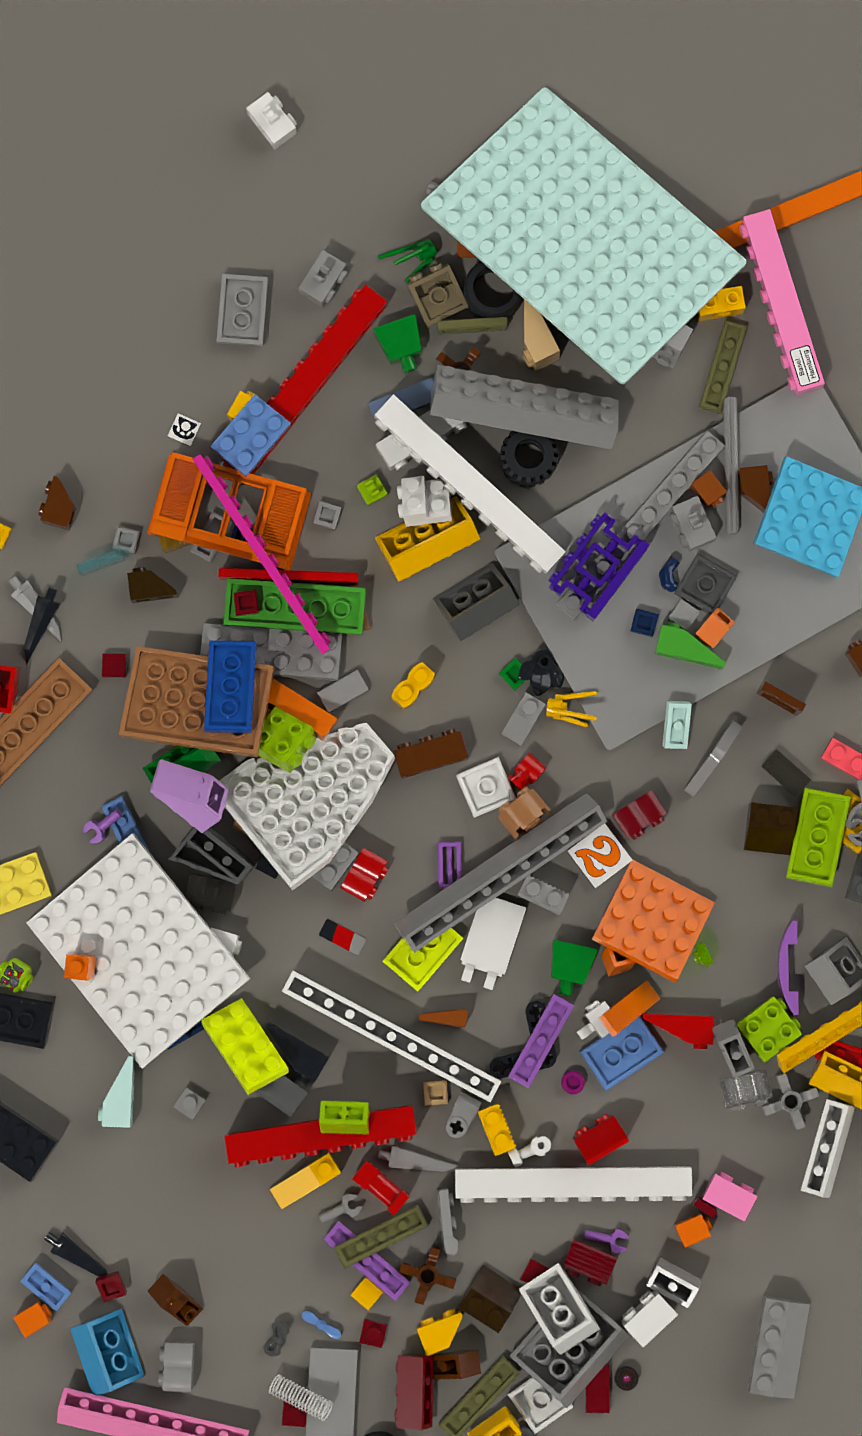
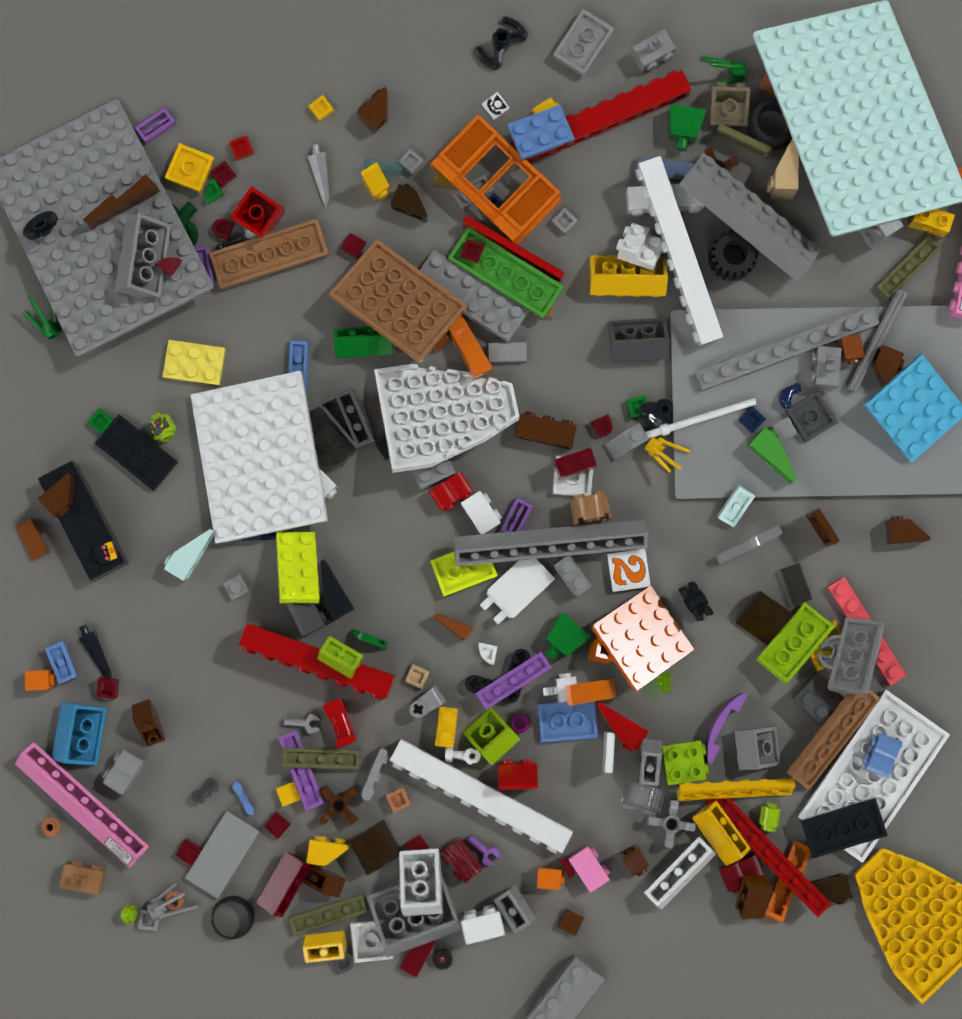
camera: 25 degrees right, 0 degrees up
(32, 1142) = (106, 552): none -> black tile
(41, 617) = (319, 184): black bar -> none
(79, 966) = (210, 445): orange brick -> none
(101, 585) = (375, 182): none -> yellow slope
(101, 826) = (280, 355): medium lavender bar -> none
(170, 339) = (502, 41): none -> black piece
(190, 794) = (356, 363): lavender slope -> none
(230, 687) = (428, 303): blue tile -> none
(257, 544) = (503, 212): dark pink plate -> none
(285, 740) = (446, 363): lime brick -> none
(305, 1180) = (289, 688): yellow slope -> none
(327, 1404) = (197, 848): white piece -> none
(342, 937) = (411, 528): sticker -> none
(362, 1080) = (369, 639): none -> green tile
(372, 490) = (606, 220): lime tile -> none
(391, 1036) = (407, 618): white brick -> none
(408, 1159) = (370, 713): light grey bar -> none
(409, 880) = (481, 513): none -> white brick
(418, 680) = (564, 374): yellow brick -> none
(480, 773) = (575, 463): none -> dark red brick
(487, 1235) = (398, 799): none -> nougat plate
(488, 715) = (602, 426): none -> dark red tile
(497, 1025) = (488, 652): none -> white tile
(527, 771) = (609, 481): red piece -> none
(549, 1112) = (491, 736): none -> lime slope
(557, 683) = (665, 429): none -> white bar
(612, 576) = (747, 373): dark purple fence -> none
(640, 814) = (673, 556): dark red brick -> none
(682, 1062) = (608, 752): none -> white tile
(689, 850) = (695, 601): none -> black pin
(714, 628) = (801, 450): orange brick -> none
(740, 1264) = (570, 922): none -> reddish brown tile
(773, 1162) = (634, 860): none -> reddish brown slope

